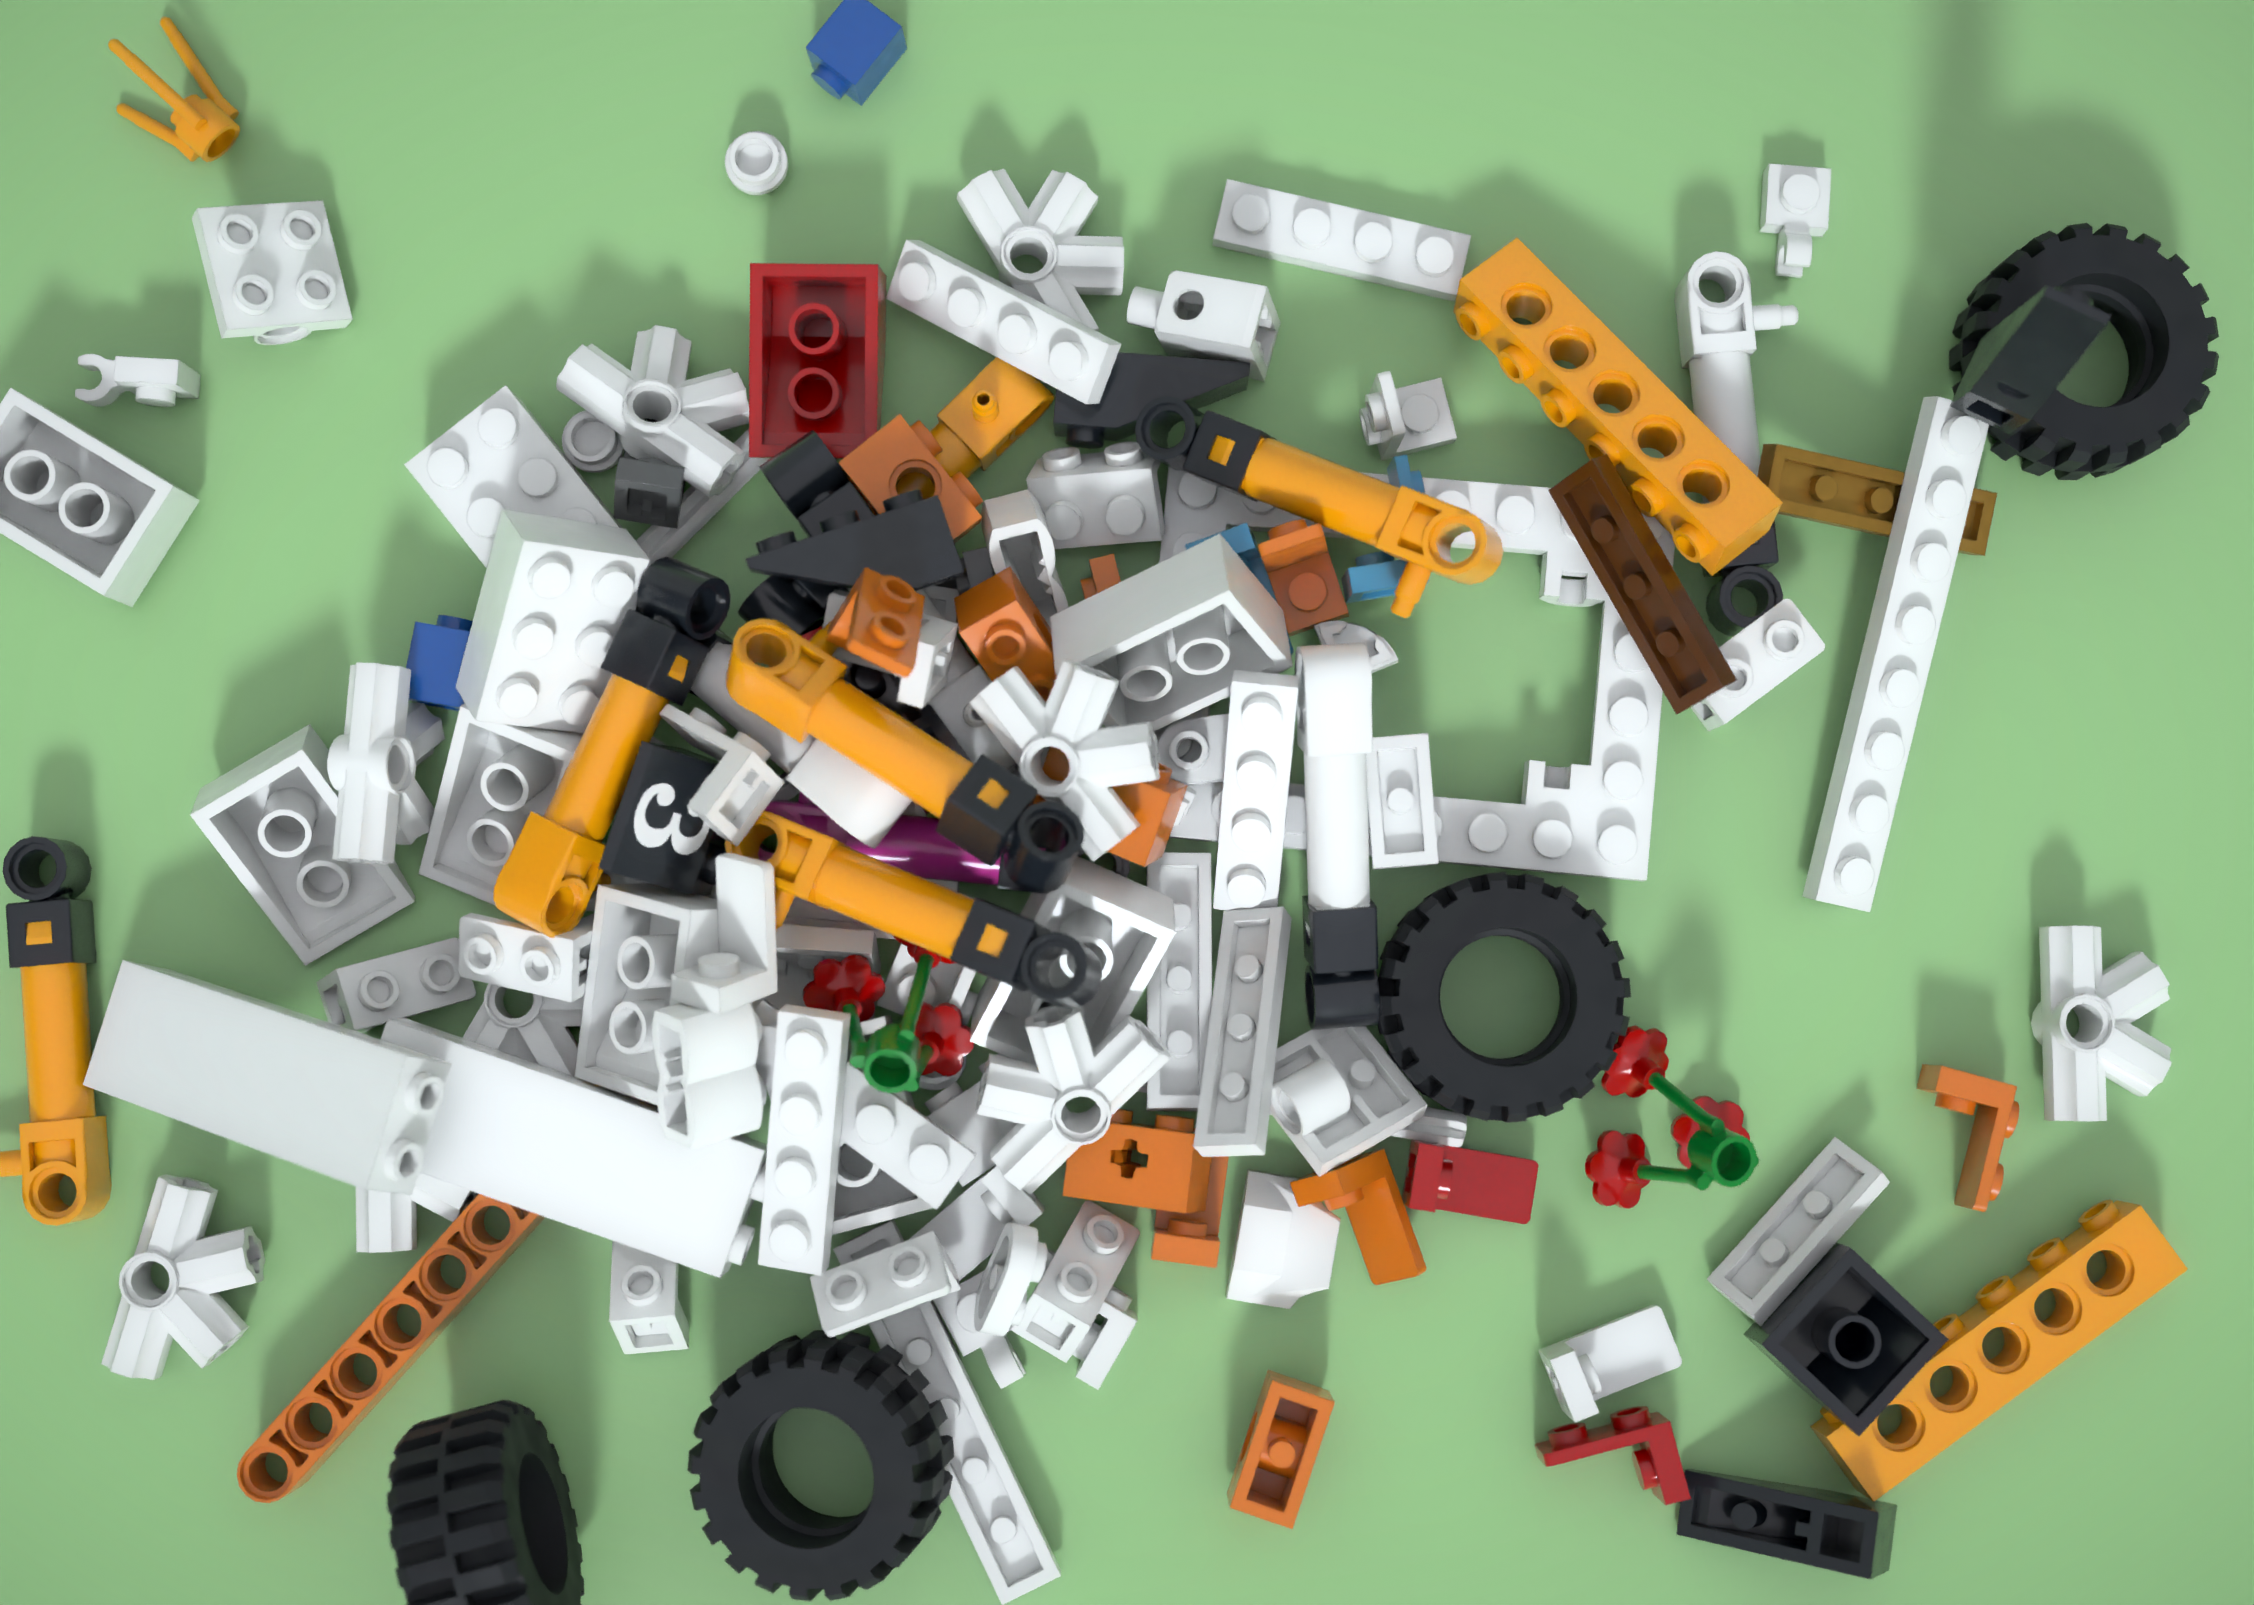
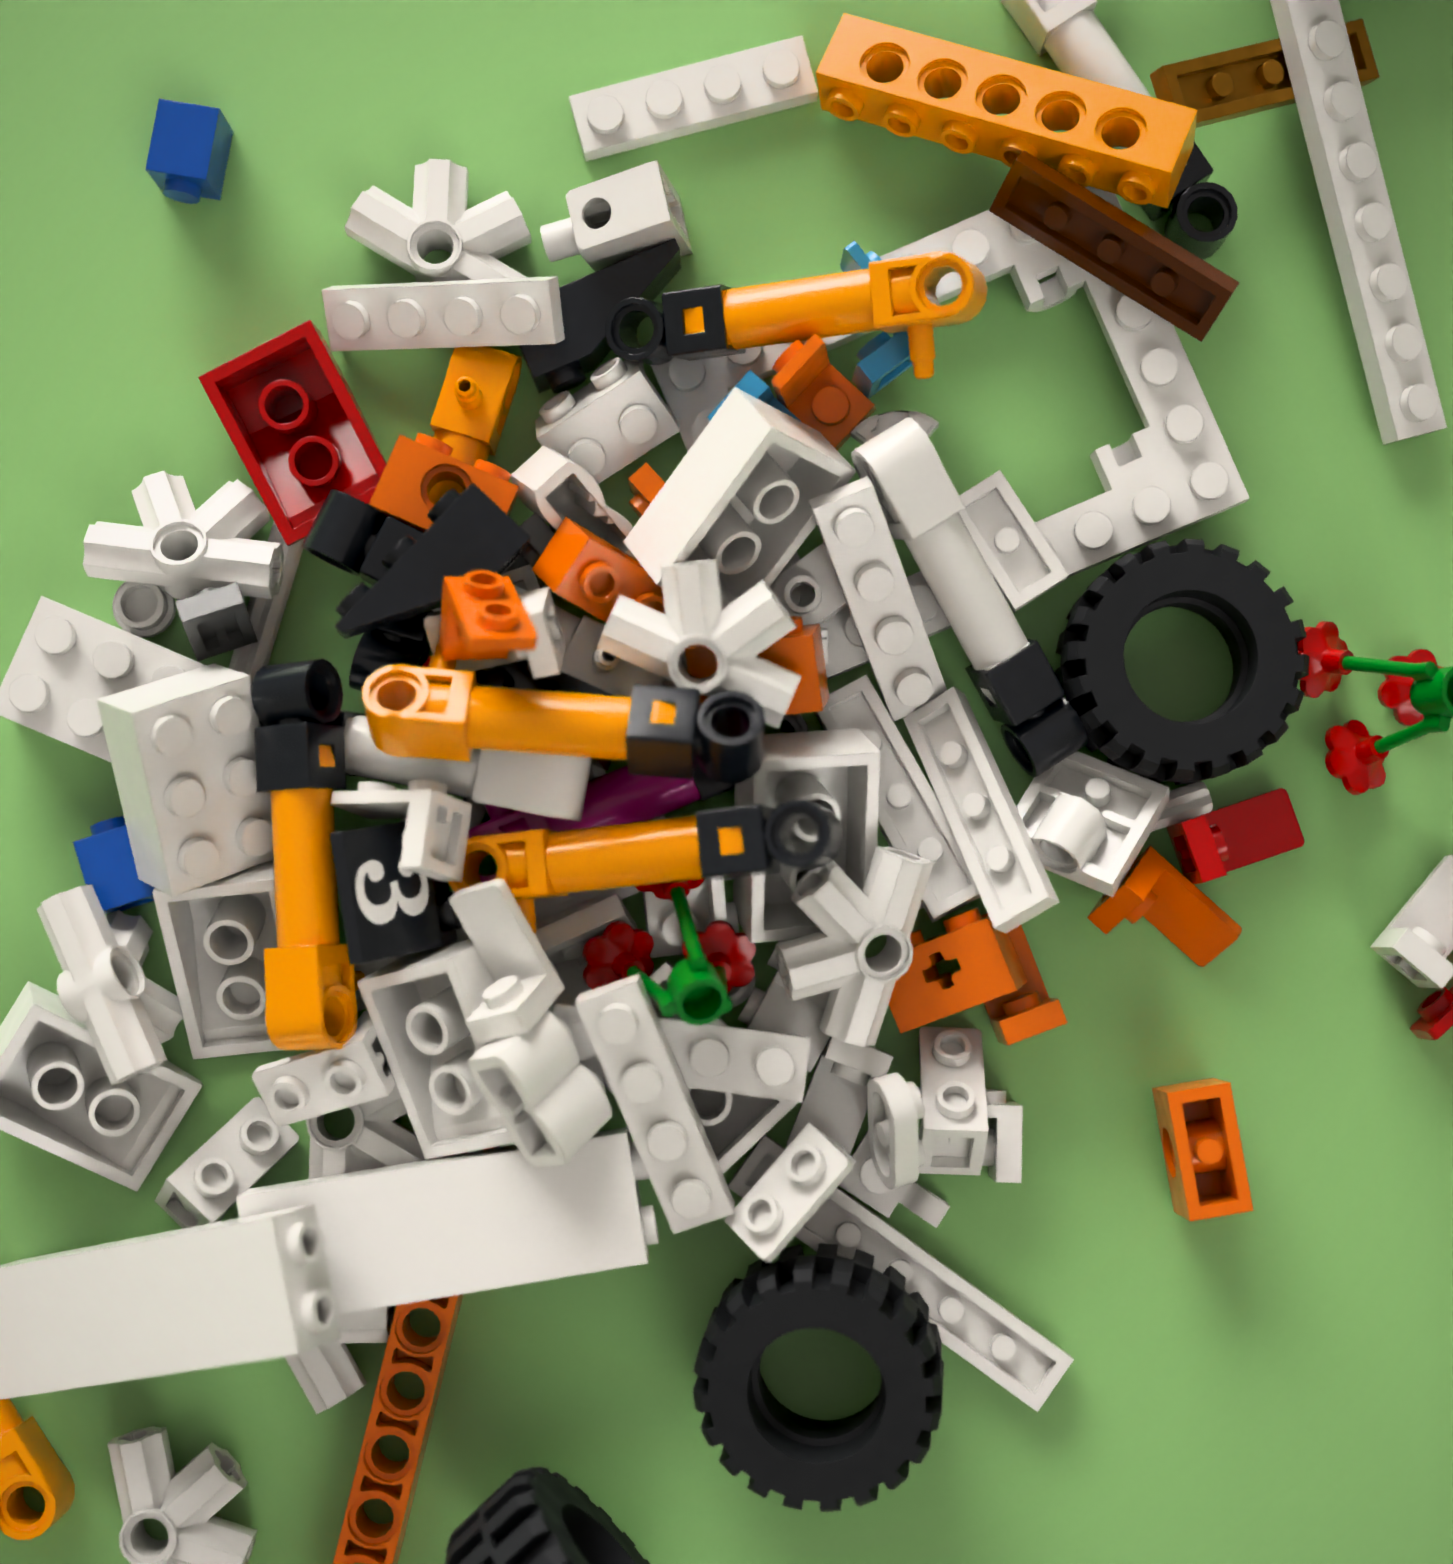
camera: 30 degrees left, 0 degrees up
(645, 1302) = (590, 1320): white bracket -> none
(756, 163) = (156, 294): white plate -> none
(1280, 1246) = (1104, 976): white slope -> none
(1406, 417) = (829, 218): white bracket -> none
(1761, 660) = (1246, 253): white bracket -> none

